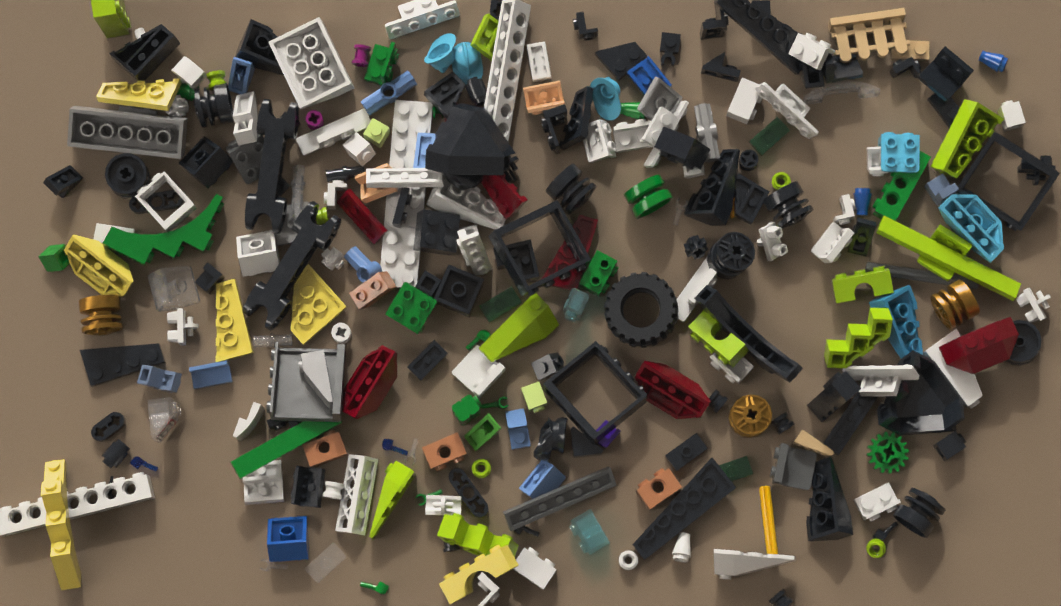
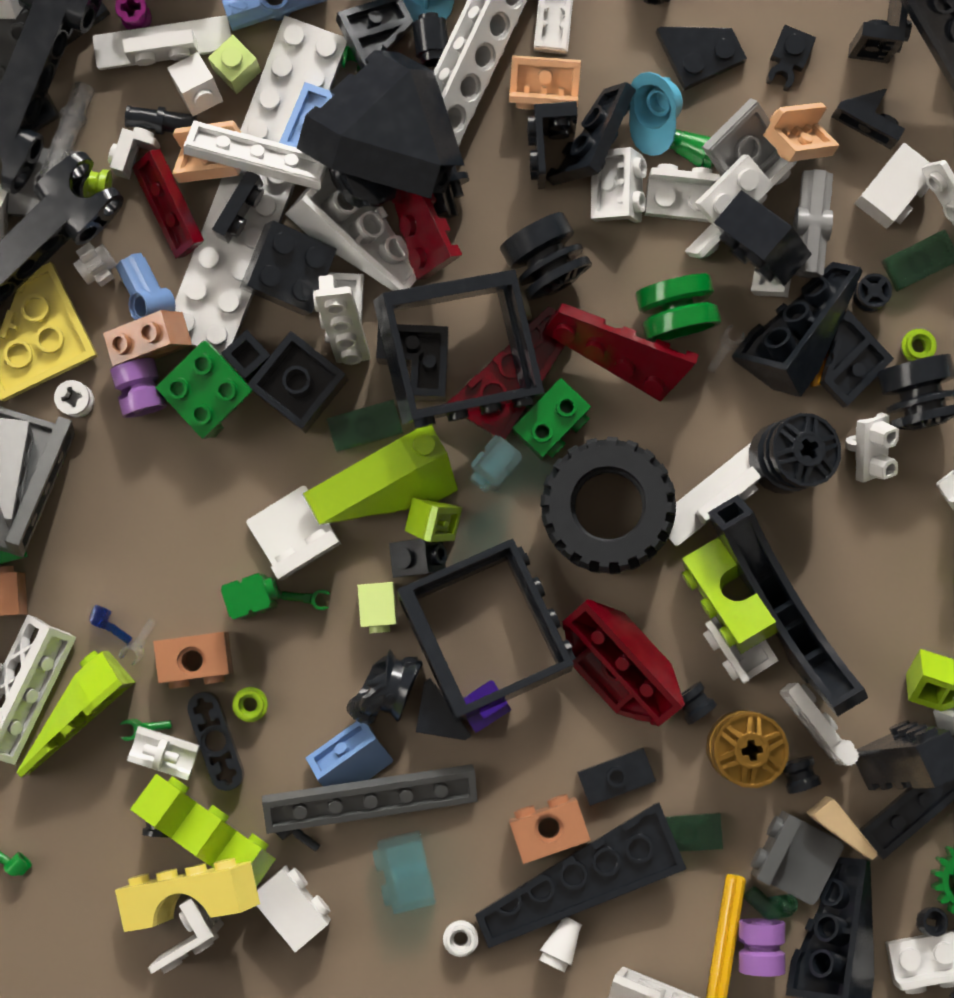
camera: 15 degrees right, 5 degrees up
(370, 382) = (96, 502): dark red wedge -> none
(374, 317) = (137, 383): none -> medium lavender wheel
(427, 360) = (210, 488): black plate -> none
(482, 432) = (268, 643): bright green slope -> none
(483, 335) = (320, 471): green hand -> none
(517, 429) = (333, 652): medium blue slope -> none
(550, 343) = (433, 520): none -> lime slope
(623, 227) = (635, 360): none -> dark red wing
(644, 73) = (732, 89): blue plate -> none
(685, 87) = (797, 133): none -> light nougat bracket
(695, 247) = (736, 420): black gear -> none
(785, 394) = (819, 725): none -> white hinge
(787, 497) = (771, 907): none -> clear green arm
(787, 518) = (761, 947): none -> medium lavender wheel
(873, 477) = (934, 914): none -> black hinge

